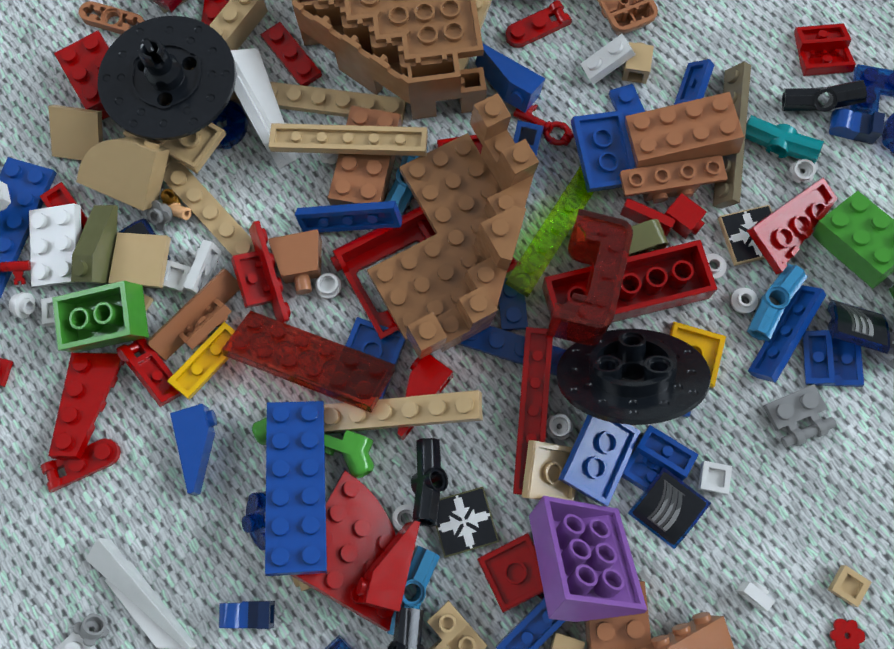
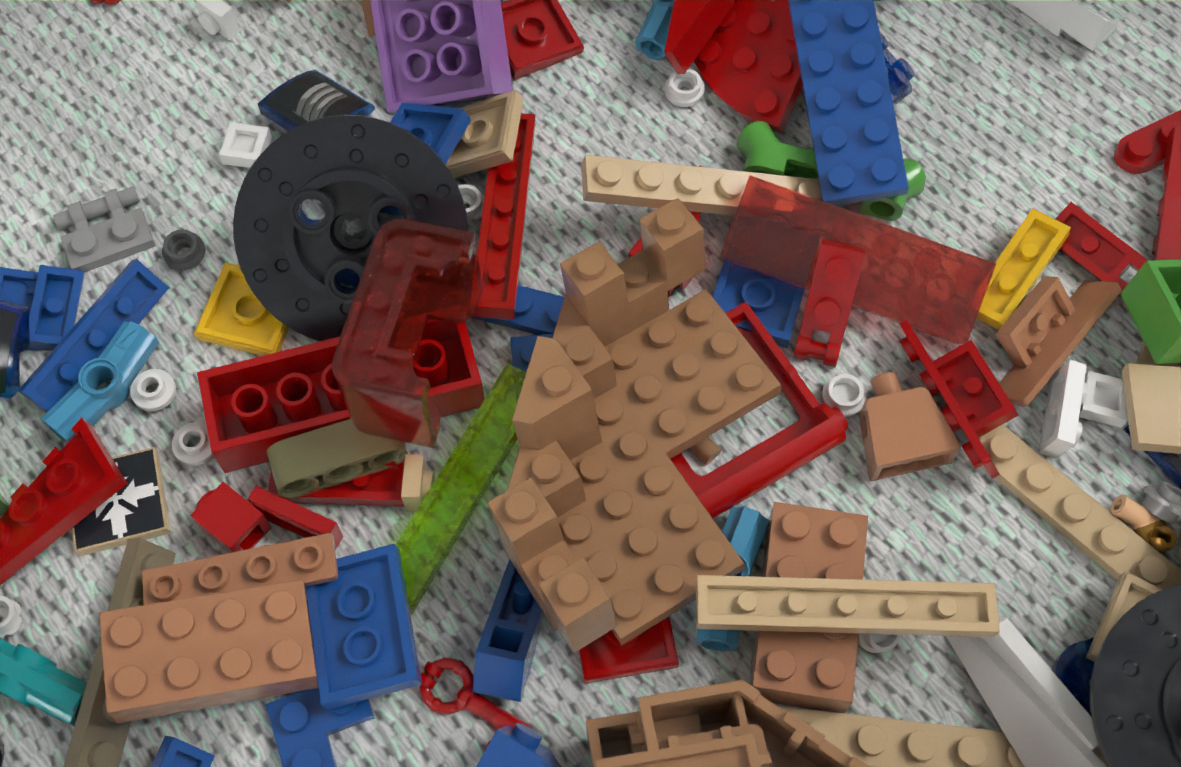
camera: 175 degrees right, 10 degrees down
(194, 442) = (1010, 169): blue slope -> none
(329, 331) = (829, 301): none -> red plate
(349, 217) = (806, 489): blue plate -> none
(428, 482) = (654, 113): black piece -> none
(465, 522) = (604, 88): black tile -> none
(751, 396) = (176, 241): none -> dark grey plate
(849, 586) = (89, 32): tan plate -> none

